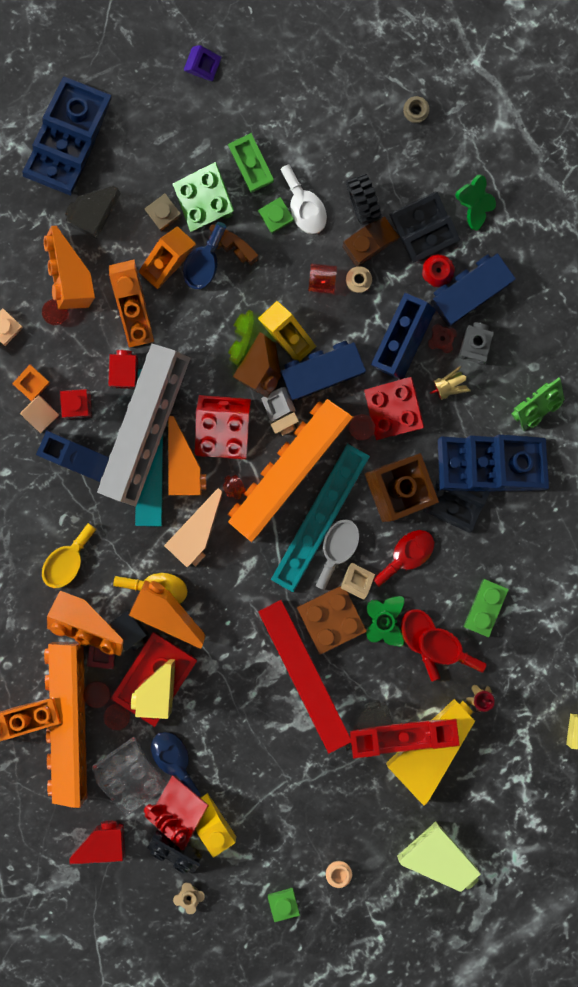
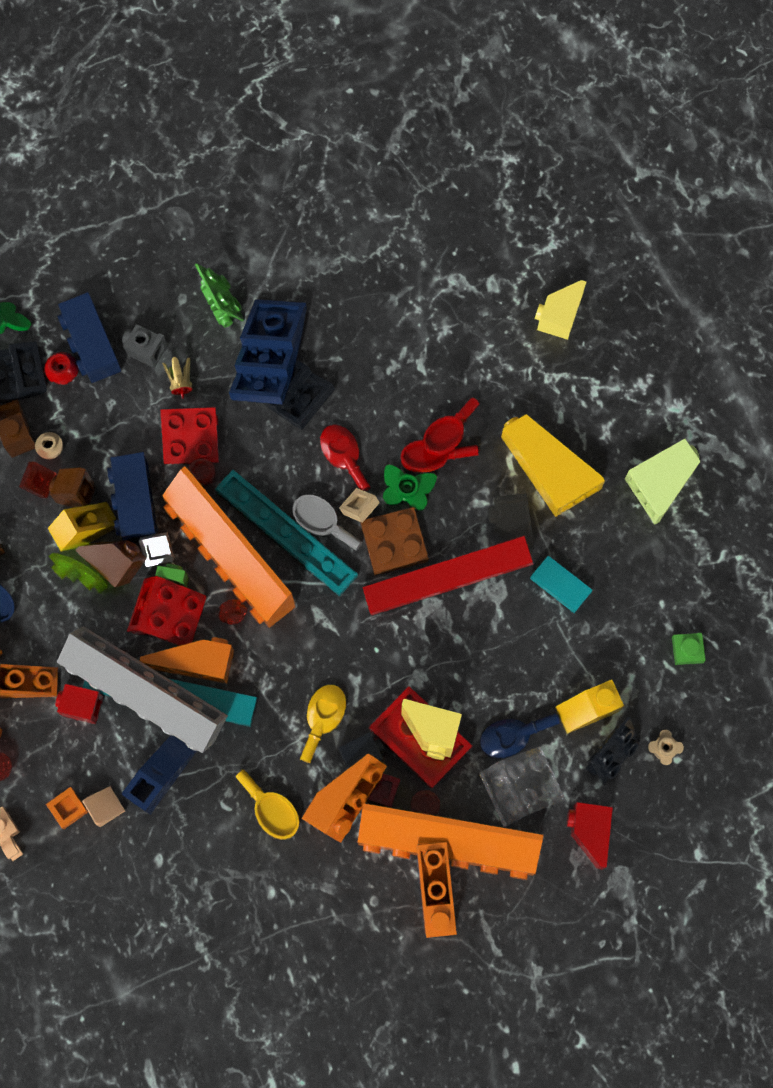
camera: 75 degrees left, 15 degrees down
(76, 404) = (102, 761): red brick -> none
(116, 717) = (454, 787): clear red plate -> none
(162, 611) = (345, 713): orange slope -> none
(177, 812) = (569, 738): hinge -> none
(194, 535) = (273, 661): light nougat slope -> none
(257, 425) = (173, 573): none -> bright green plate
(285, 424) = (179, 546): tan plate -> none
(319, 312) = (72, 487): none -> reddish brown slope
(320, 779) = (561, 584): none -> teal tile
(338, 874) = (664, 585): light nougat plate -> none
(401, 488) = (272, 442): reddish brown slope -> none
(403, 336) = (118, 410): dark blue brick -> none
(404, 737) = (529, 481): red slope -> none
(445, 345) = (127, 370): clear red plate -> none
(482, 700) = (506, 403): dark red piece -> none
(486, 608) = (414, 387): bright green plate -> none

